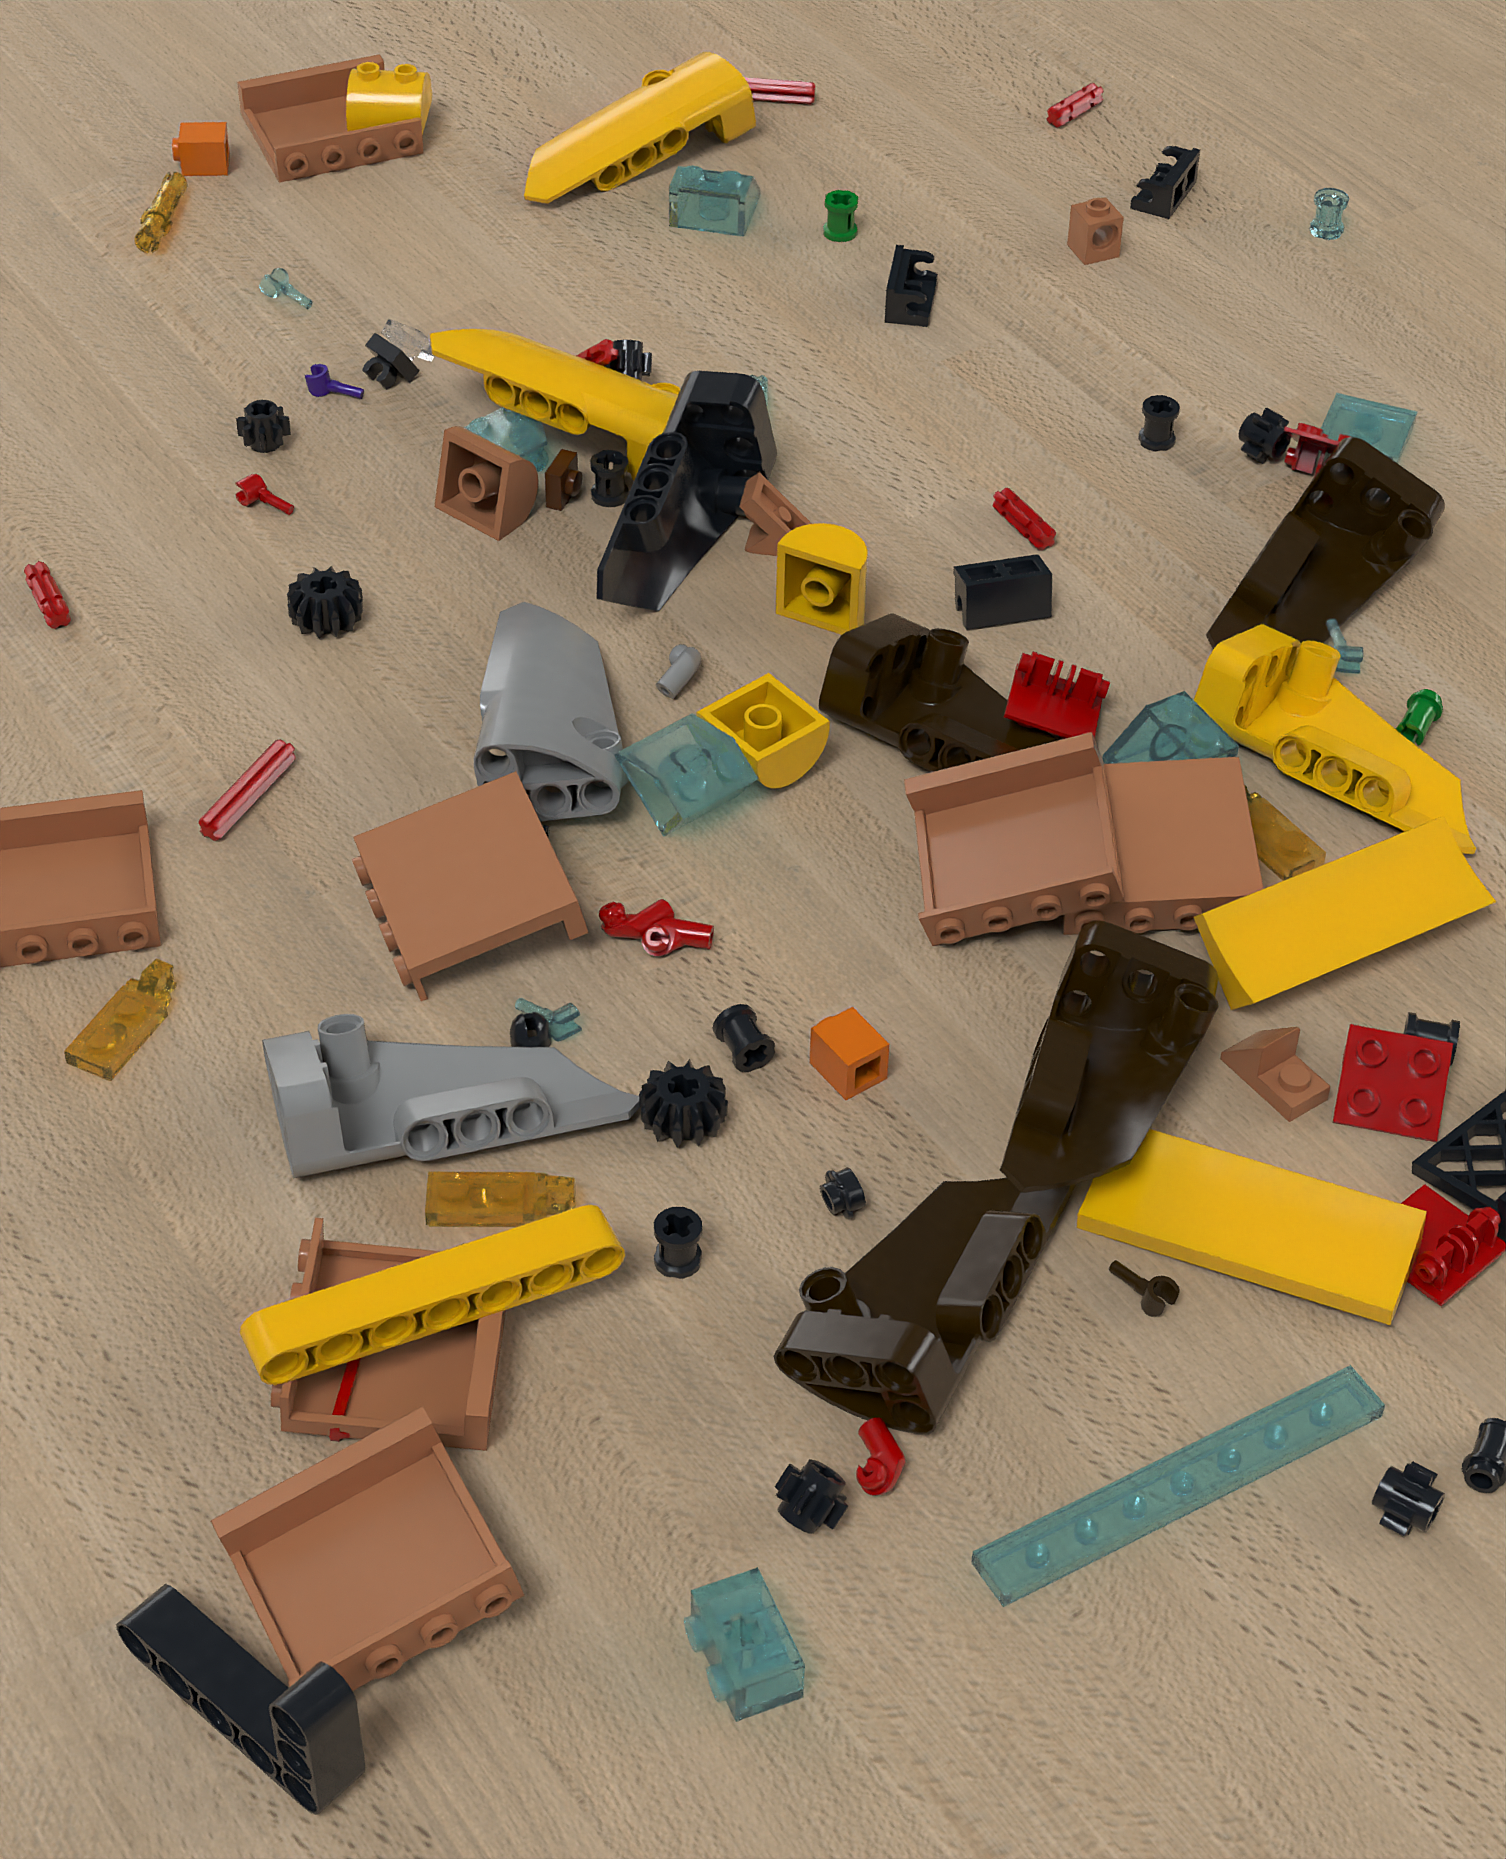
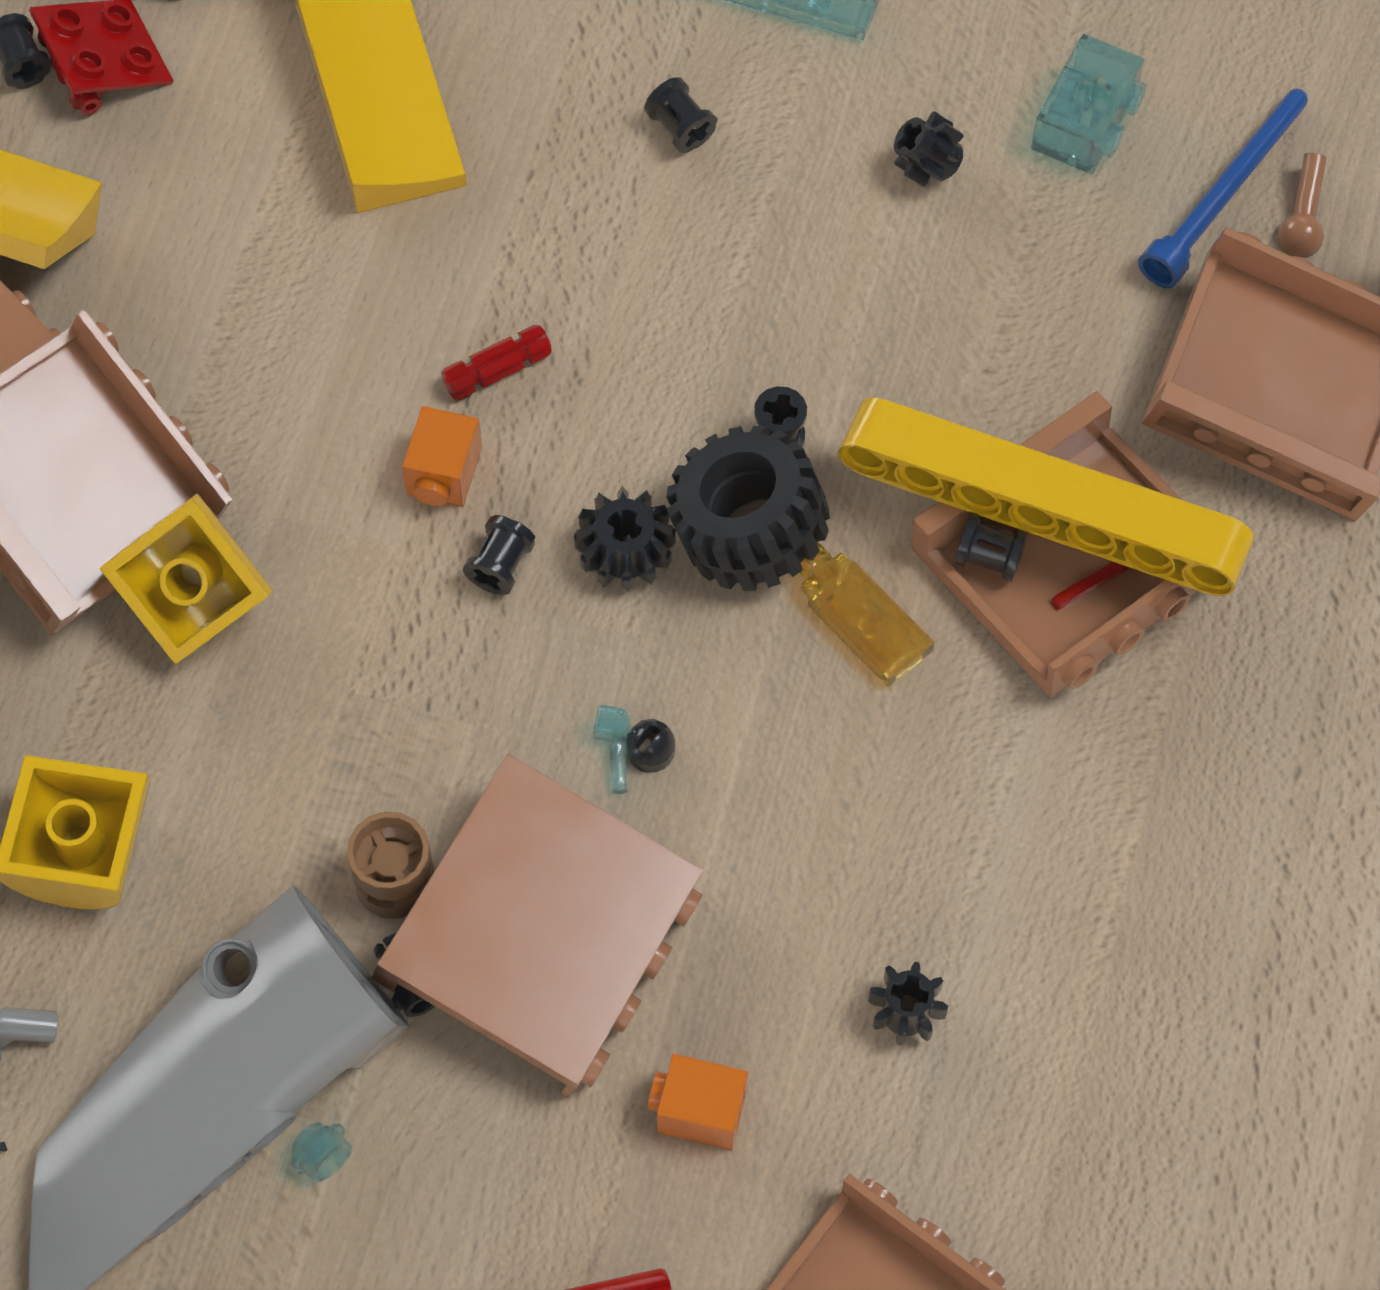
camera: 130 degrees left, 20 degrees up
(124, 1023) = (976, 1108): clear yellow hinge -> none
(218, 1025) = (910, 984): none -> black gear
(283, 899) = (699, 1101): none -> orange brick
(384, 1100) = (813, 745): light grey panel -> none
(461, 742) = (320, 1151): none -> clear light blue plate
(485, 1719) = (1302, 233): none -> nougat bar
(556, 1590) = (1168, 258): none -> blue piece
(588, 851) = (389, 850): none -> medium nougat wheel
(619, 924) = (430, 768): red arm -> none
(623, 1157) = (732, 474): none -> black tyre
(674, 933) = (414, 728): red arm -> none
(685, 771) = (199, 855): clear light blue slope -> none
(842, 1192) = (603, 353): black plate -> none
(881, 864) = (186, 578): none -> yellow brick
(885, 1460) = (840, 142): red arm -> none
(899, 1137) = (496, 362): none -> red axle
(919, 1303) = (644, 212): dark brown panel -> none
(1005, 1372) = (680, 114): none -> black bush
(1107, 1056) = (297, 222): dark brown panel -> none
(1149, 1290) = (495, 84): dark brown hand -> none
(1276, 1073) = (152, 146): nougat slope -> none

